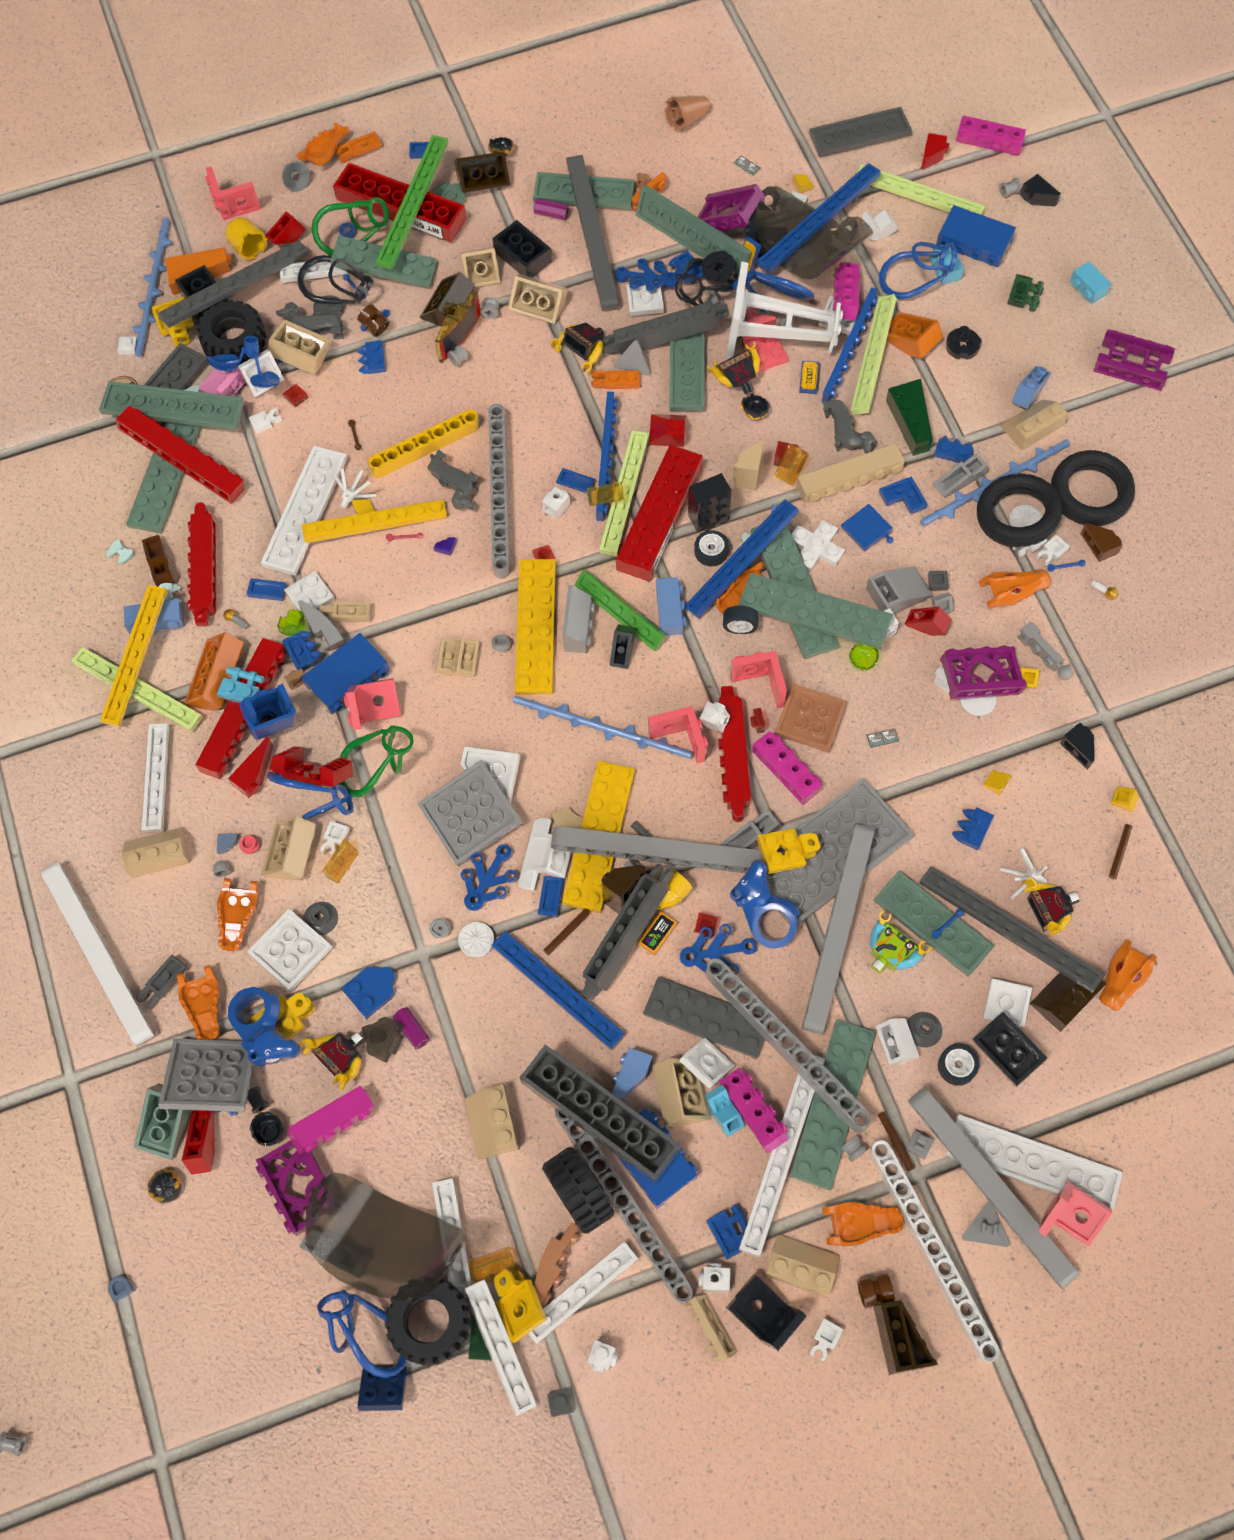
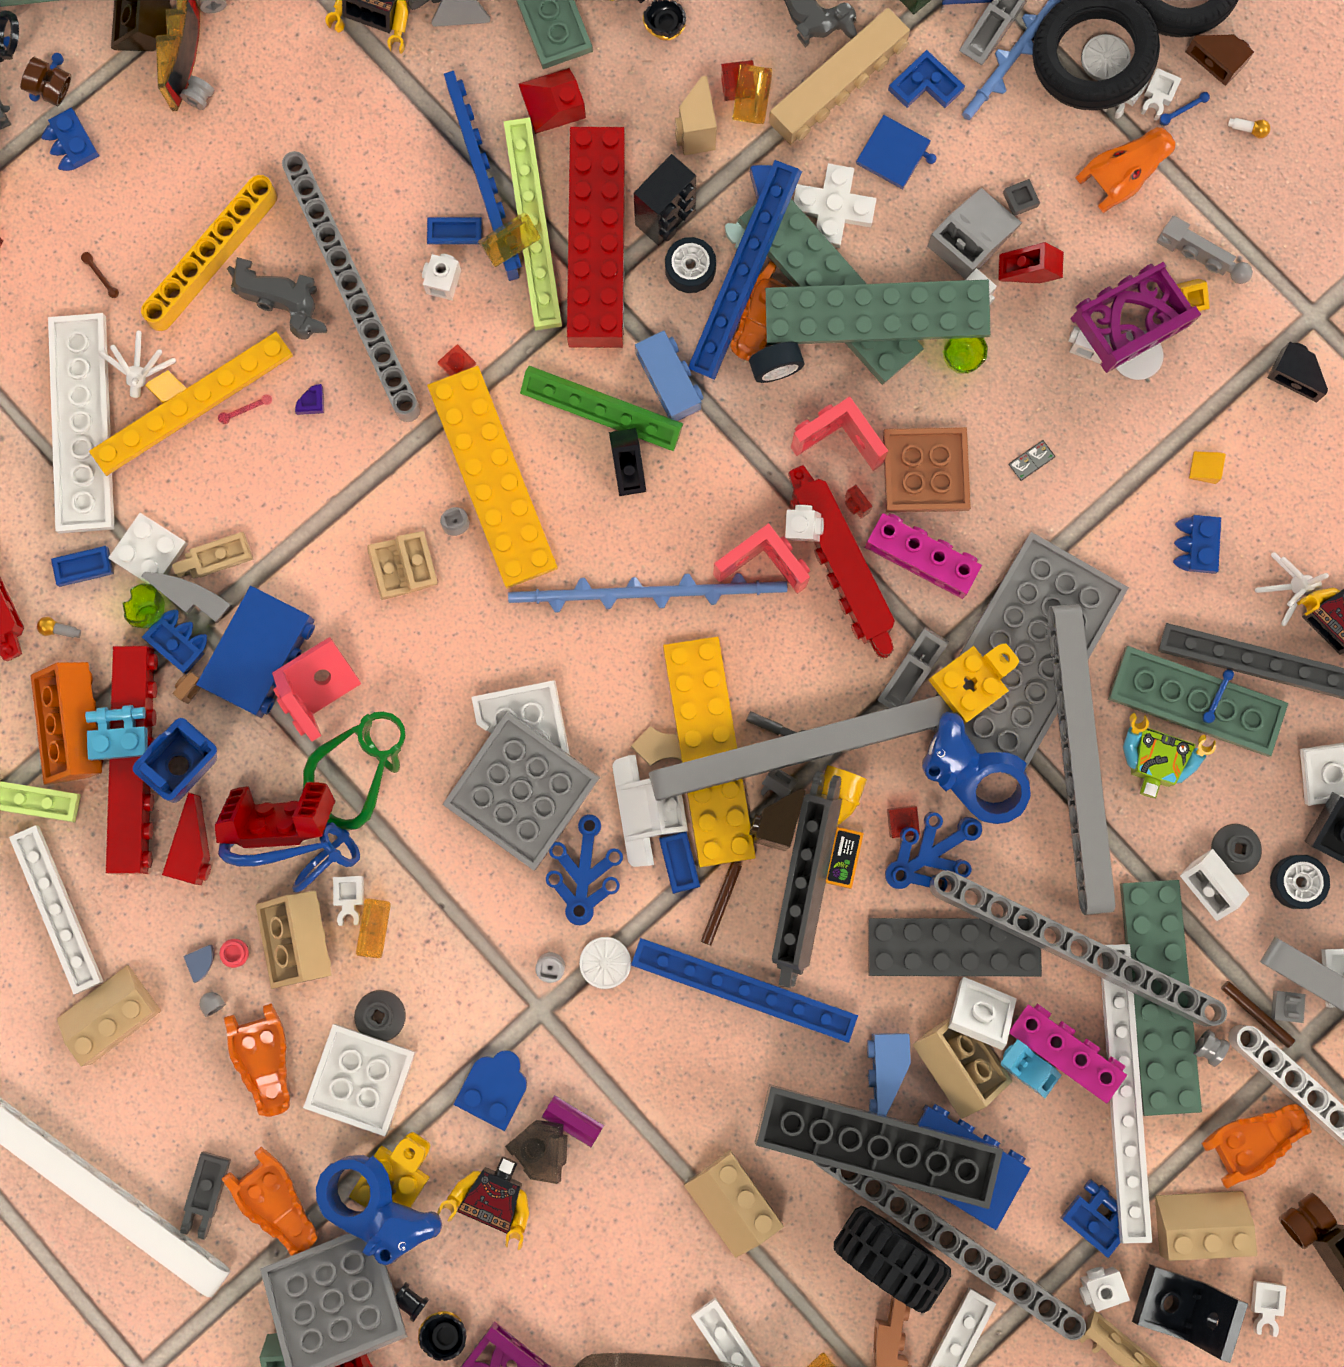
camera: 25 degrees left, 15 degrees up
(330, 1120) = (524, 1296): dark pink brick -> none
(577, 620) = (551, 449): light grey slope -> none
(616, 379) = (446, 46): orange hinge -> none
(944, 601) = (1040, 230): light grey tile -> none

